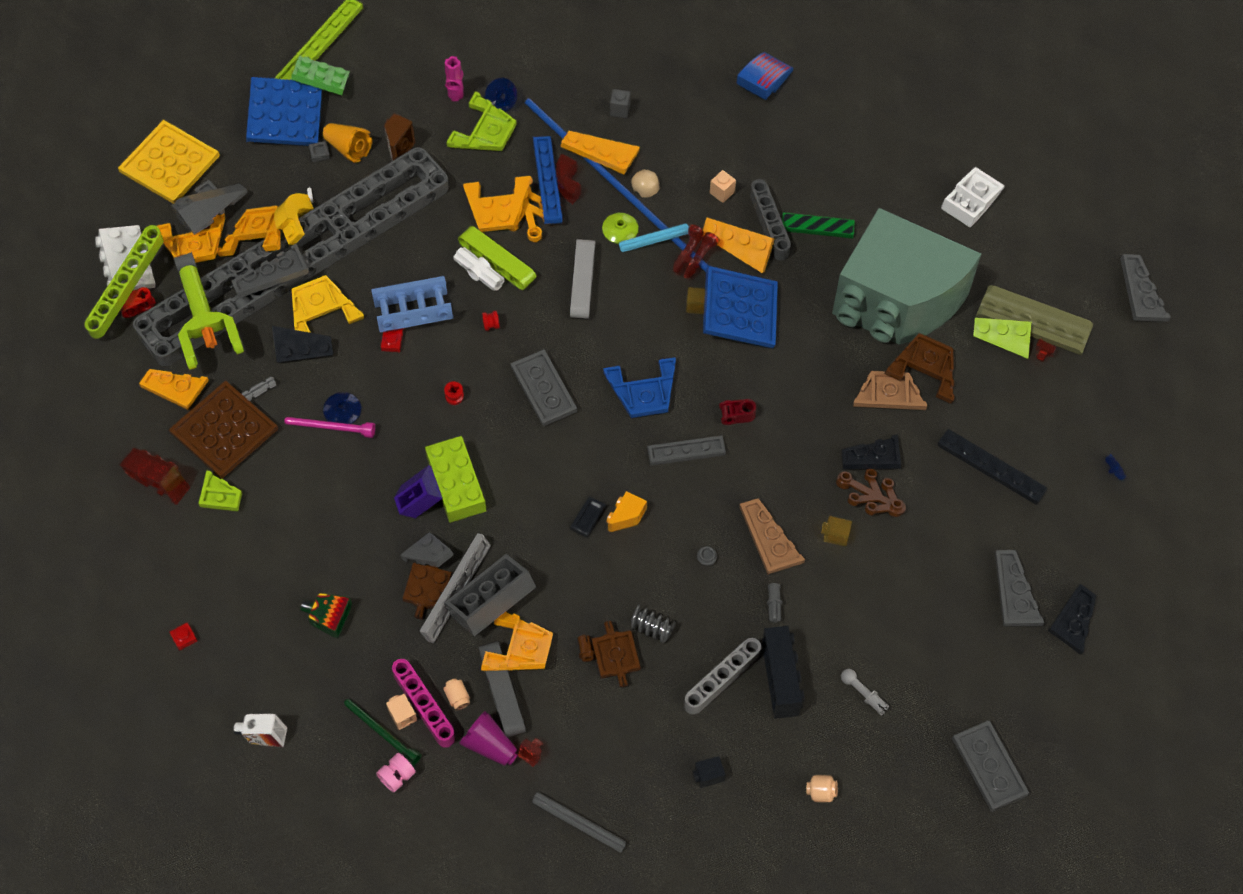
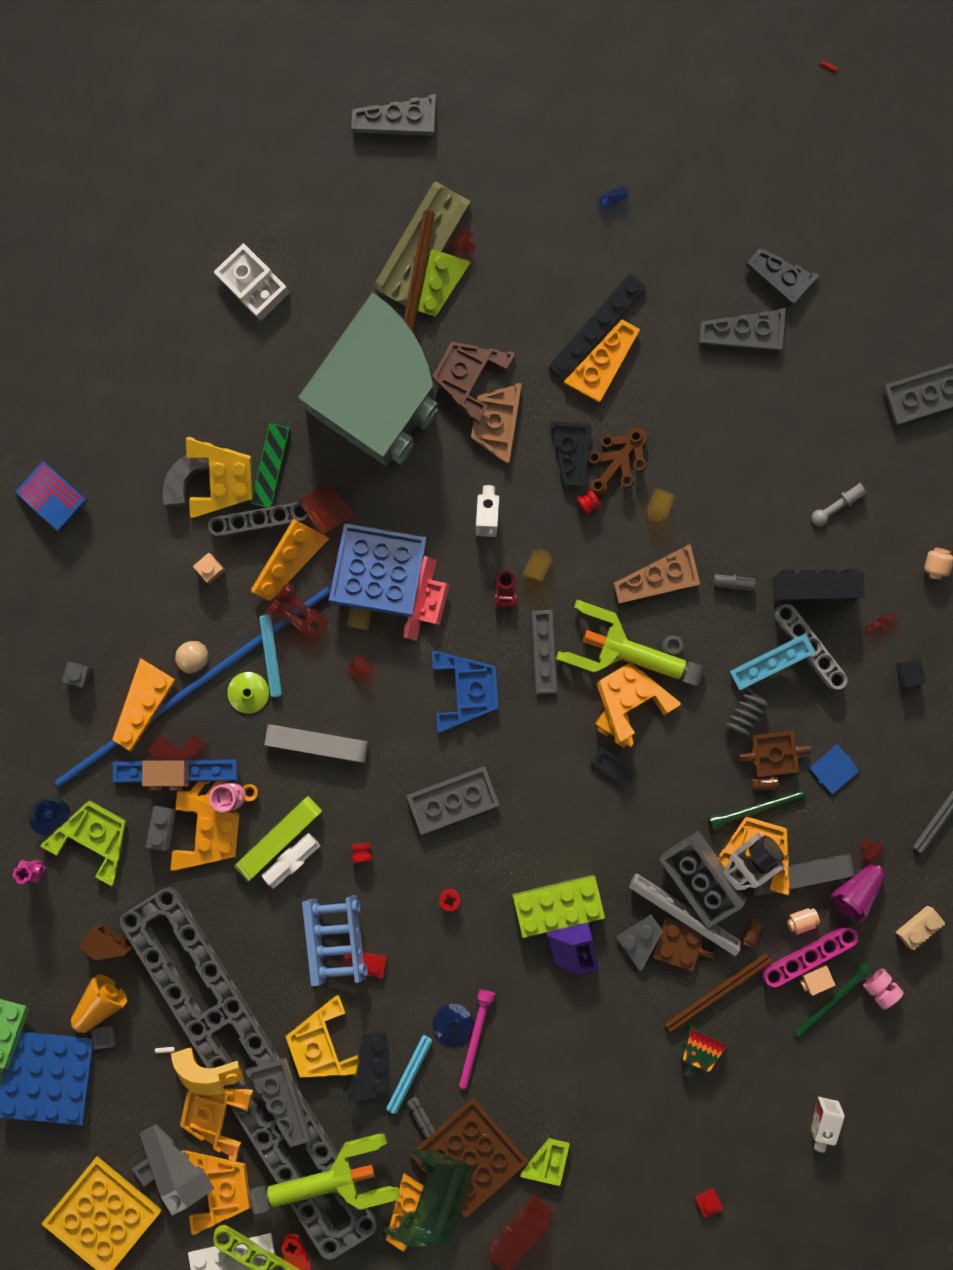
camera: 85 degrees left, 25 degrees up
(181, 405) = (439, 1201): none -> clear green windscreen
(296, 376) = (409, 1074): none -> medium azure axle
(382, 625) = (718, 993): none -> reddish brown axle
(440, 649) = (752, 934): none -> reddish brown pin
(458, 803) = (920, 927): none -> tan brick
(498, 171) = (161, 827): none -> dark grey brick
(511, 632) = (765, 854): none -> light grey piece
(529, 211) = (227, 797): none -> bright pink wheel
(544, 166) = (165, 773): none -> medium nougat brick
(546, 609) = (718, 821): none -> dark green piece
(606, 713) = (834, 769): none -> blue piece
(652, 304) = (359, 667): none -> clear red tile
(659, 516) = (627, 690): none -> light orange wing
(699, 506) = (617, 647): none -> lime piece
(704, 639) = (772, 661): none -> medium azure plate
(719, 349) = (429, 600): none -> coral bracket
(756, 741) = (880, 622): none -> clear red piece
(764, 435) = (538, 565): none -> clear yellow brick
(788, 264) = (326, 508): none -> clear red tile
(800, 160) = (178, 477): none -> flat silver arch
(804, 189) = (228, 477): none -> yellow wing
(804, 387) = (487, 517): none -> white torso
(828, 472) = (589, 502): none -> red wheel
(952, 470) = (599, 368): none -> light orange wing
(1010, 314) = (419, 268): none -> reddish brown axle

